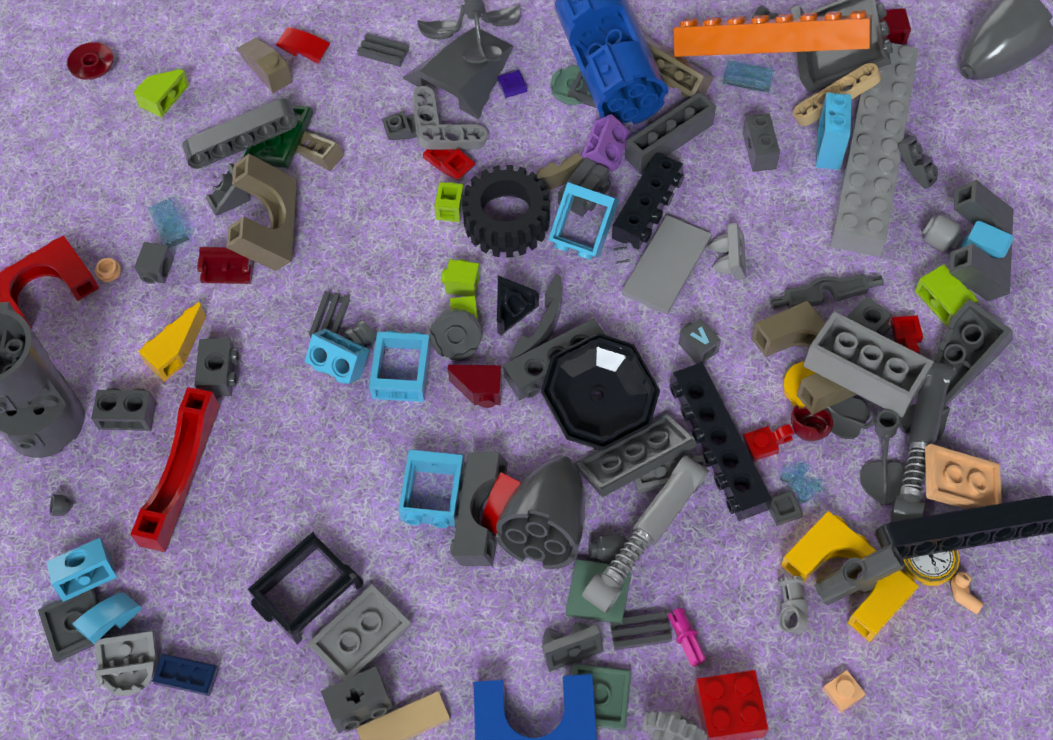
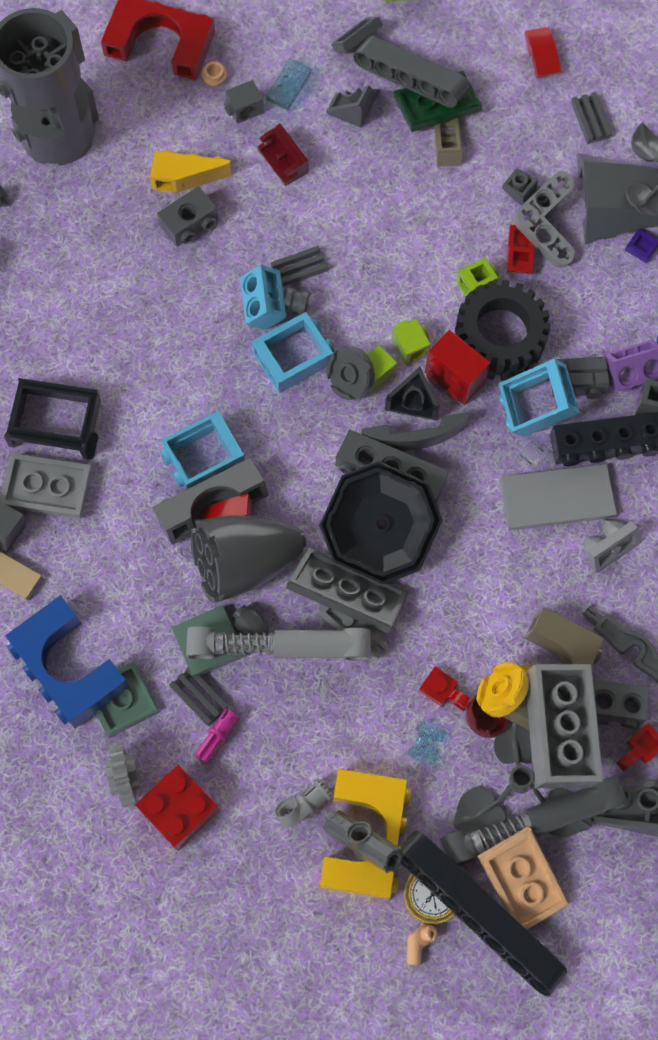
camera: 50 degrees right, 10 degrees up
(123, 414) = (100, 181): dark grey brick -> none
(161, 511) = (37, 271): red arch -> none
(172, 150) = (356, 34): none -> dark grey tile
(266, 64) = (498, 38): dark tan slope -> none
(277, 193) = (376, 143): dark tan arch -> none
(478, 383) = (322, 424): dark red slope -> none
(514, 256) = (456, 367): none -> red brick
(555, 175) = (568, 344): dark tan slope -> none
(565, 650) = (137, 646): dark grey tile -> none
(697, 381) = (380, 712): black brick -> none
(699, 341) = (496, 572): dark grey brick -> none
(785, 508) = (391, 743): dark grey tile -> none
(806, 389) = (503, 689): none -> yellow tile
(844, 691) = (258, 892): light nougat plate -> none

